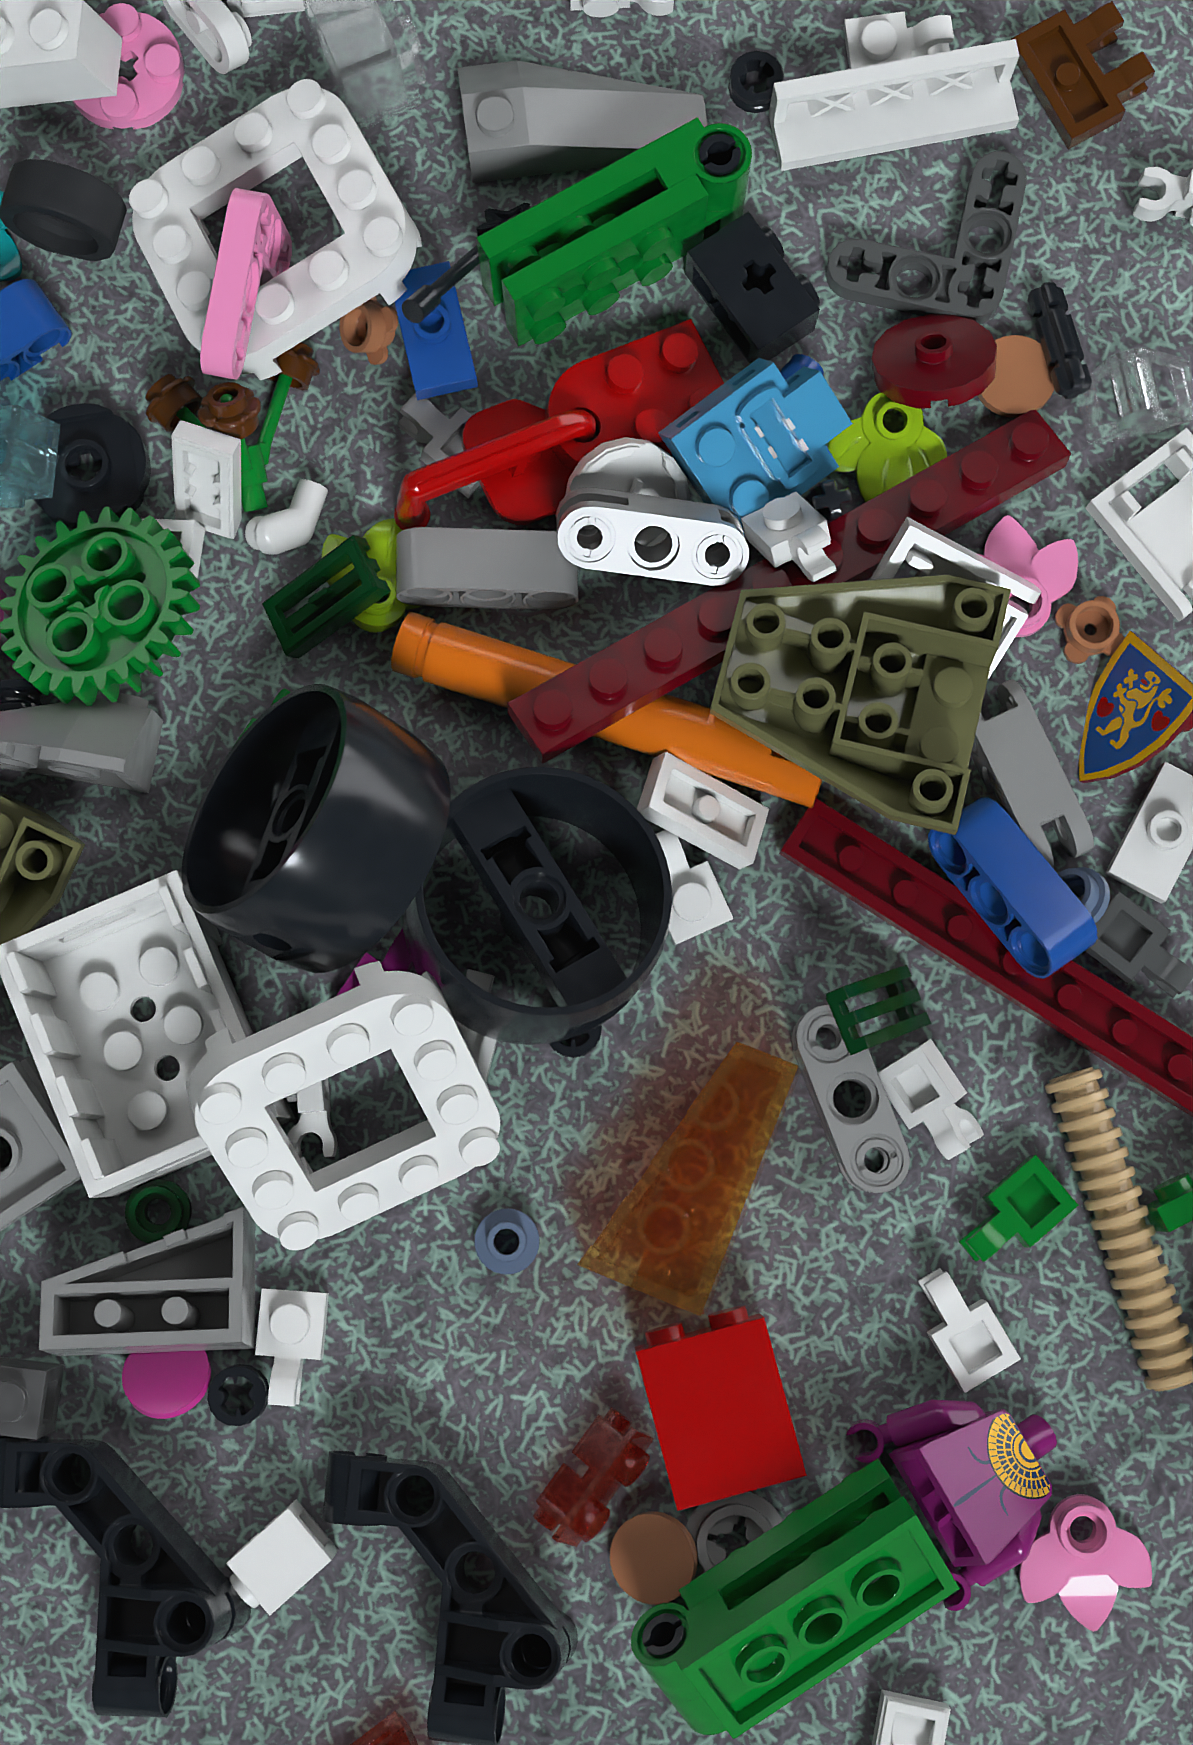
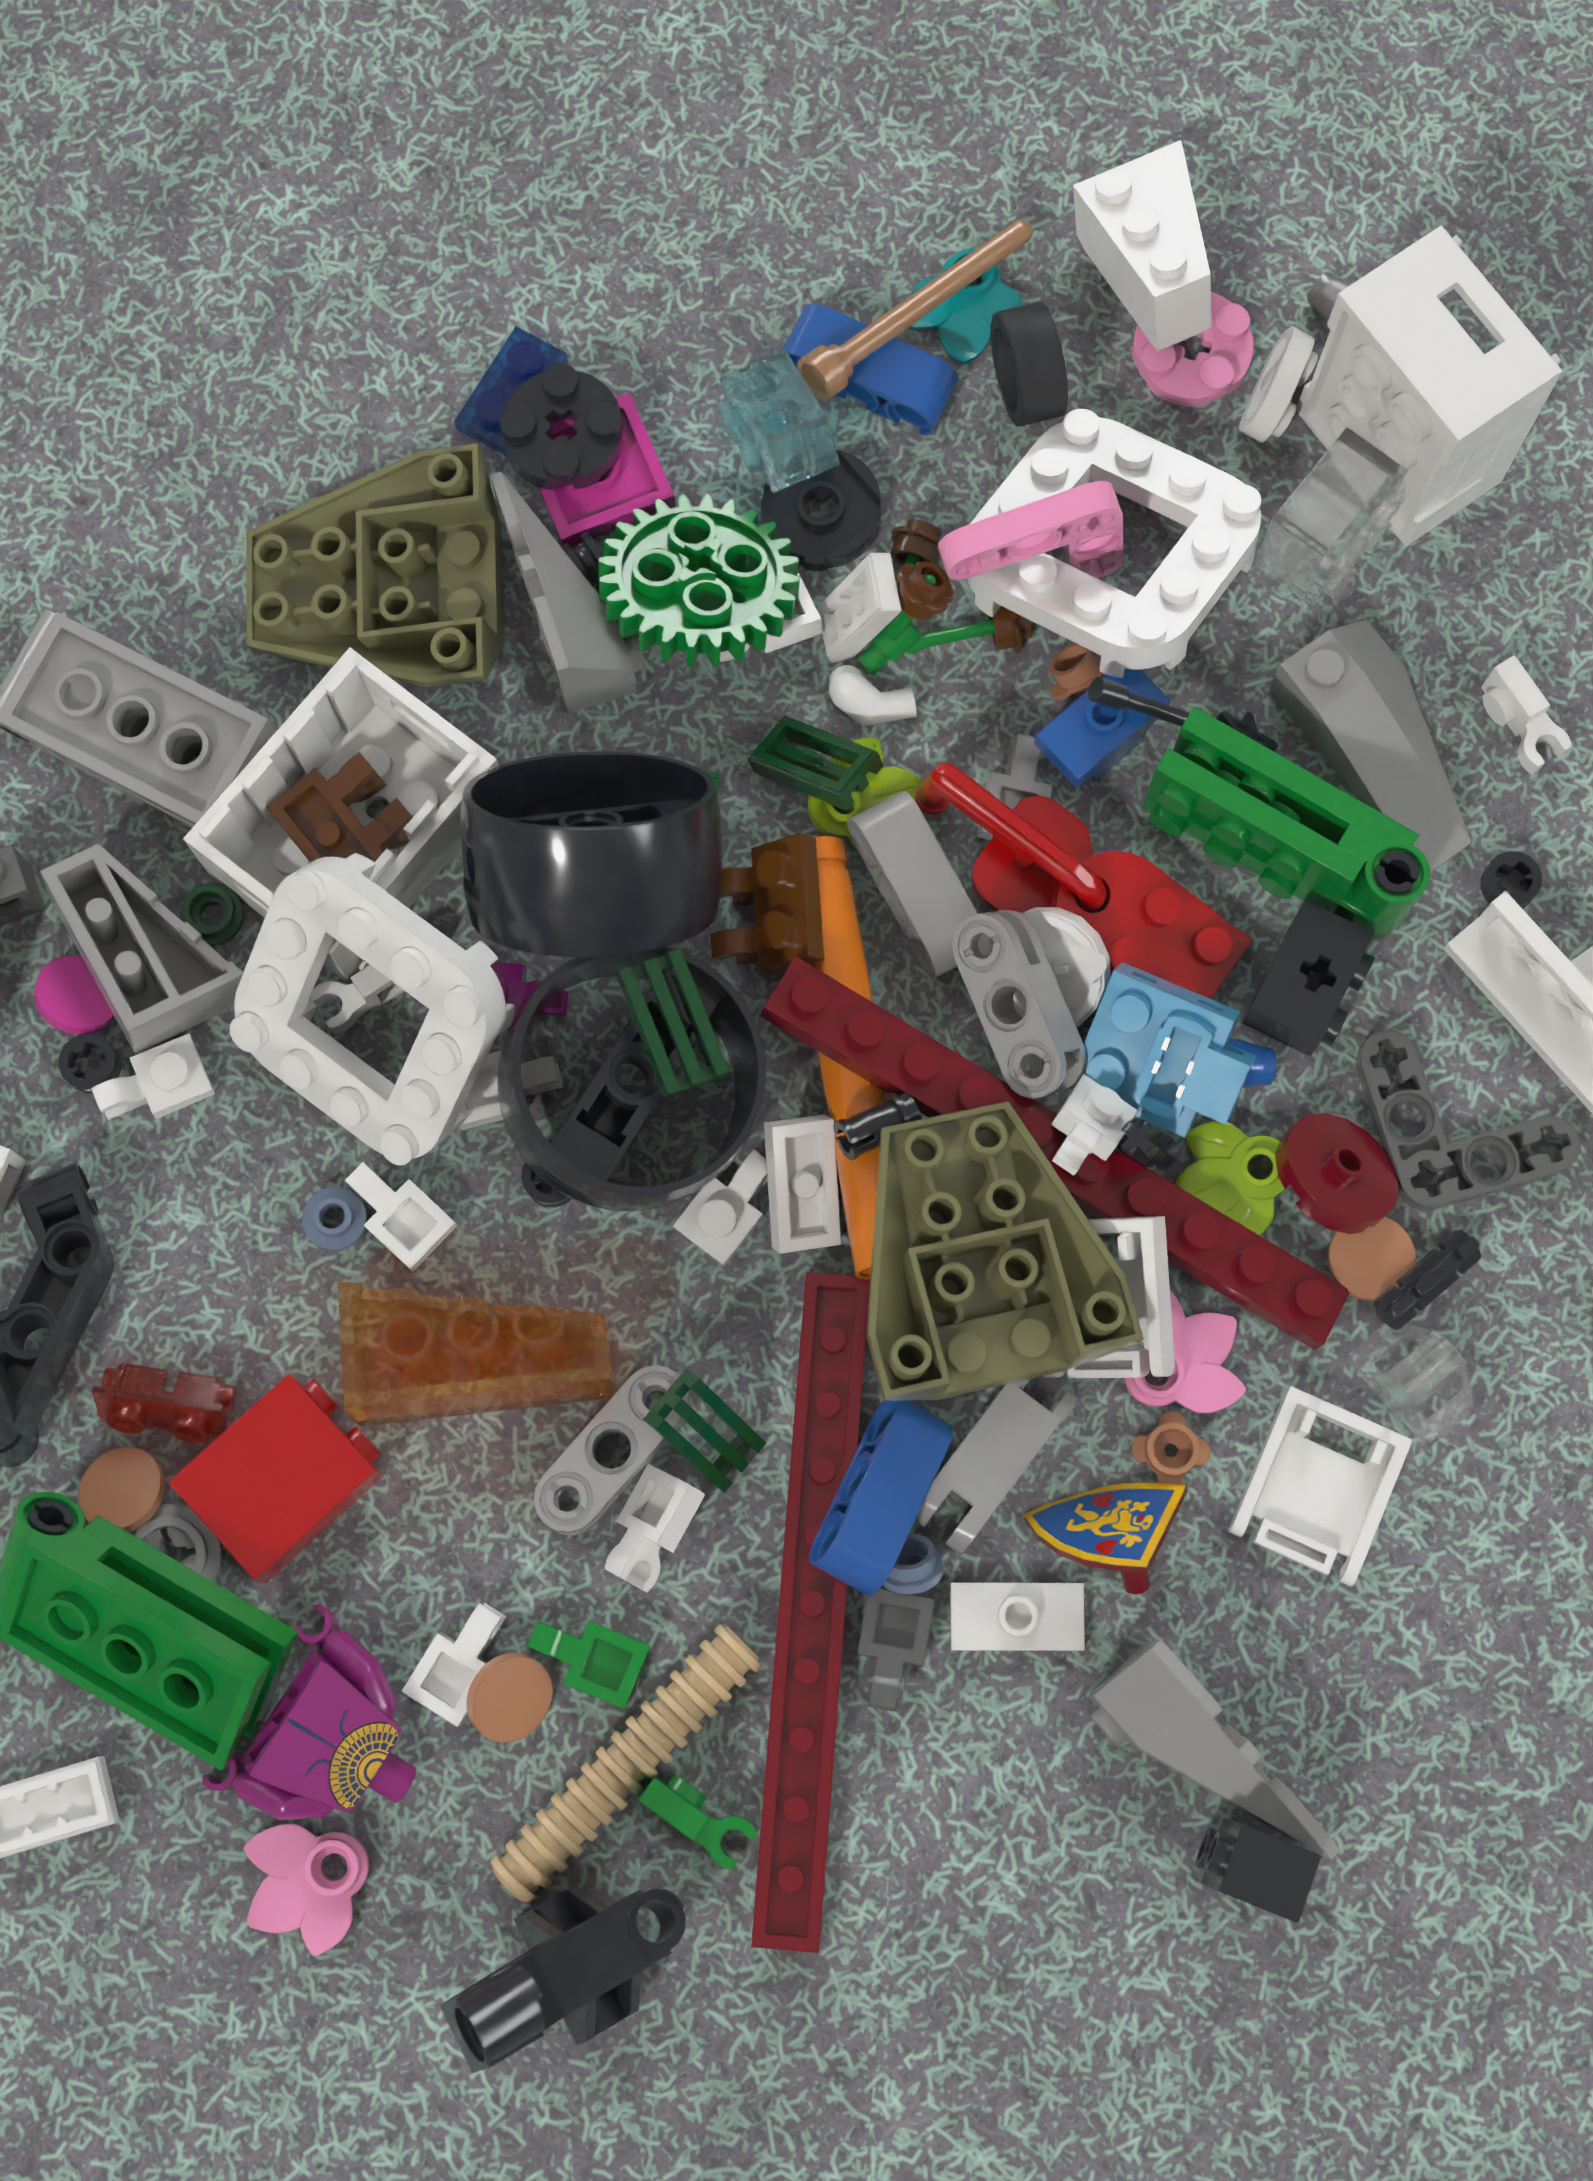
camera: 65 degrees right, 5 degrees down
(150, 1062) = (321, 823): none -> reddish brown plate
(447, 690) = (786, 906): none -> reddish brown plate
(522, 813) = (695, 1011): none -> dark green tile
(544, 1177) = (404, 1220): none -> white plate
(697, 725) = (864, 1128): none -> black pin
(1016, 1300) = (509, 1697): none -> nougat piece

